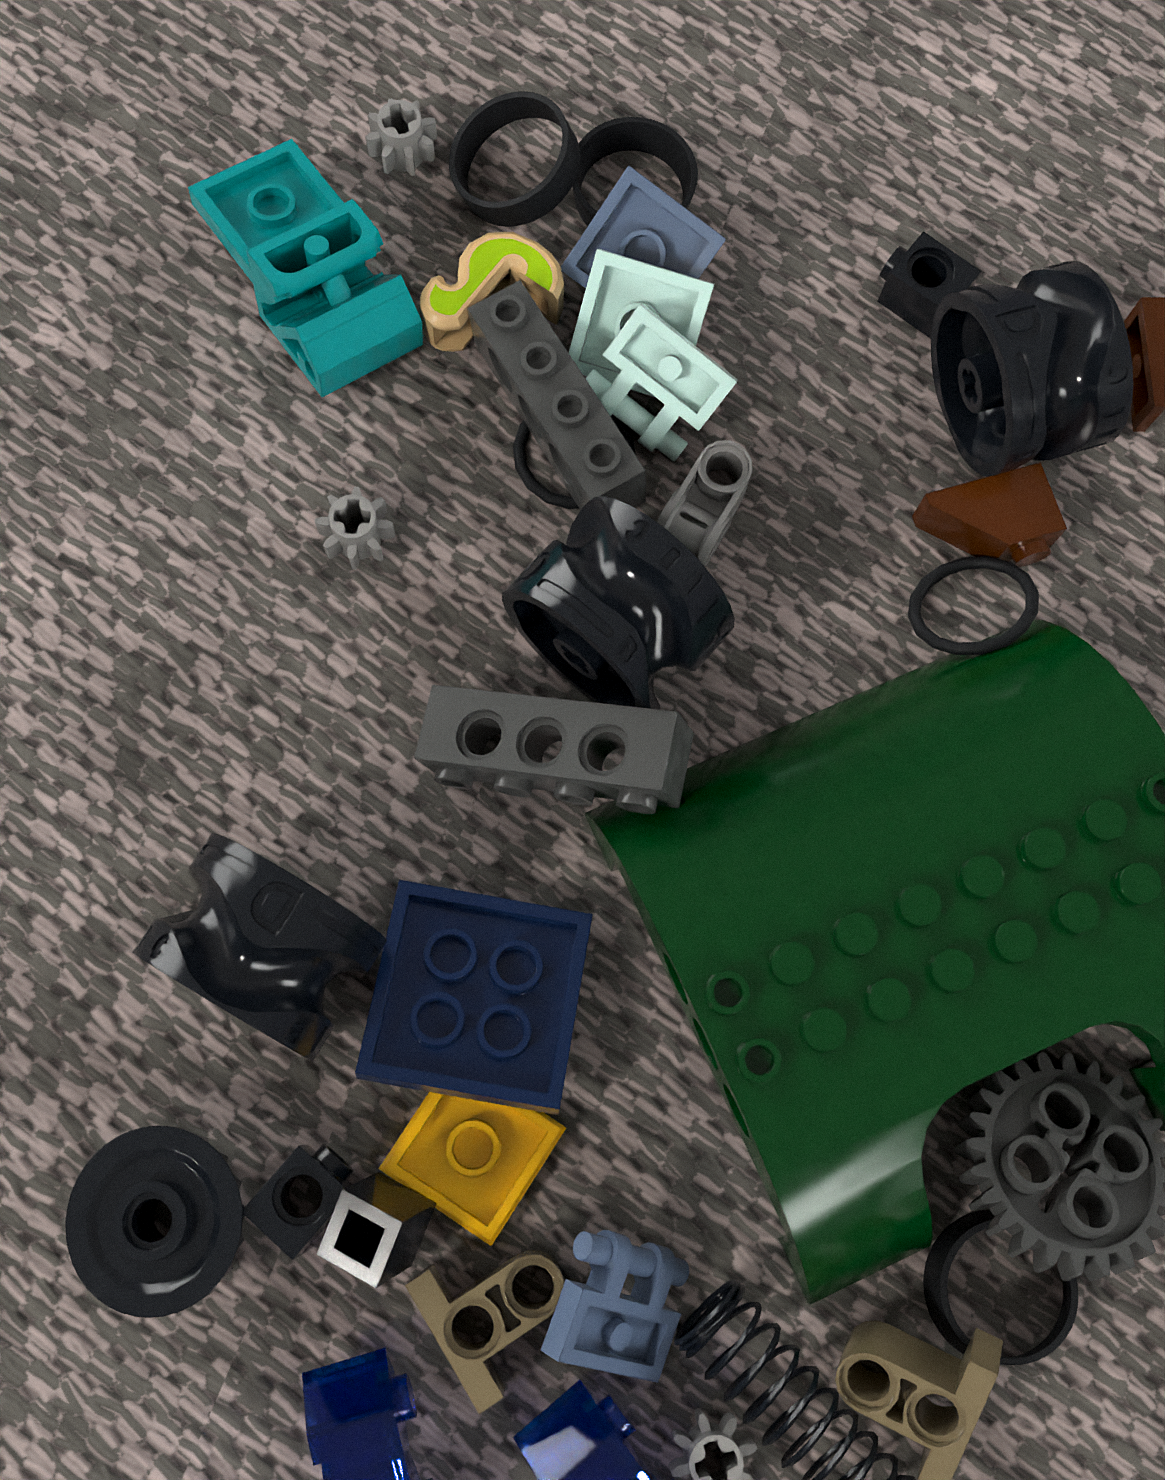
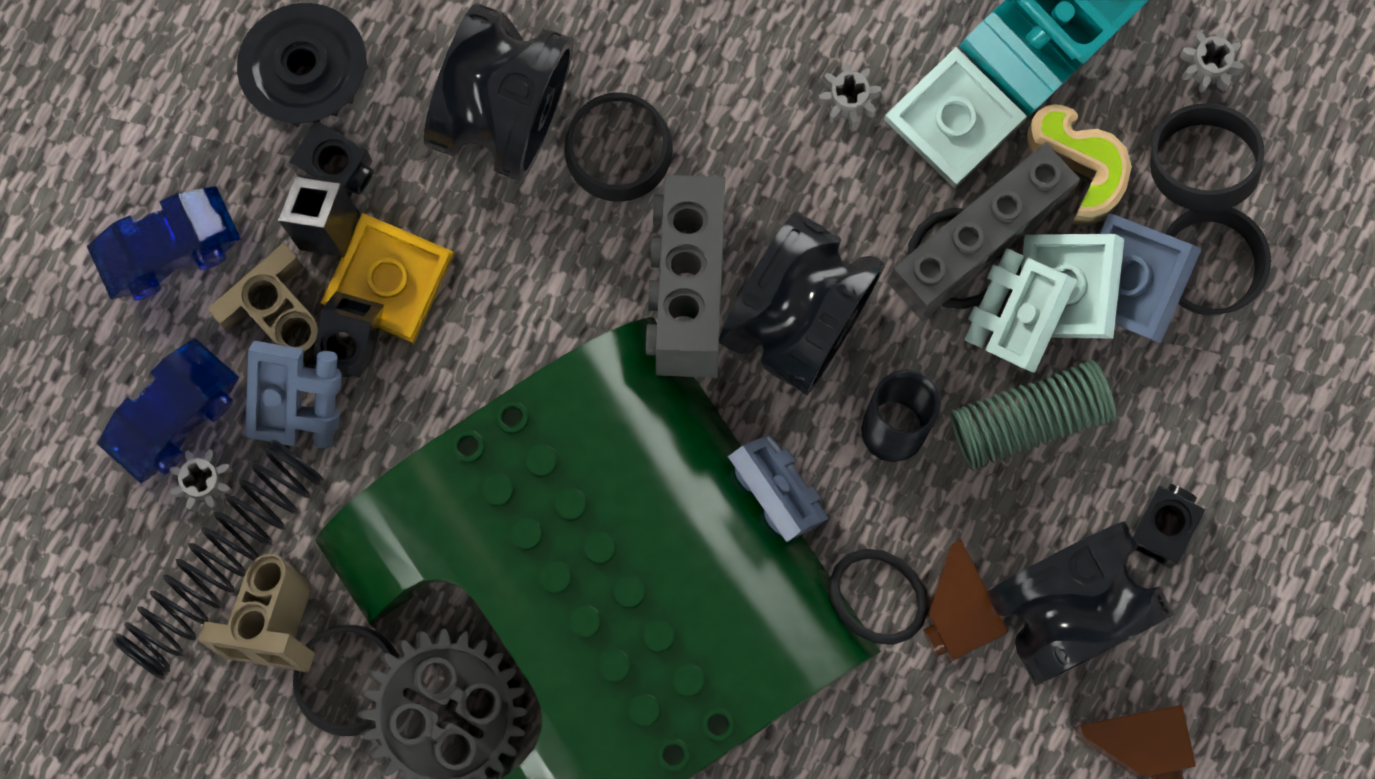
camera: 90 degrees right, 5 degrees up
(389, 869) = (624, 192): none -> black tyre
(408, 417) = (955, 117): none -> light aqua plate
(475, 997) = (496, 257): dark blue plate -> none
(528, 1200) = (358, 319): none -> black brick
(704, 510) = (929, 360): light grey piece -> none
(780, 519) = (915, 392): none -> black piece
(781, 340) = (1089, 378): none -> sand green piece
(844, 685) = (778, 487): none -> sand blue plate

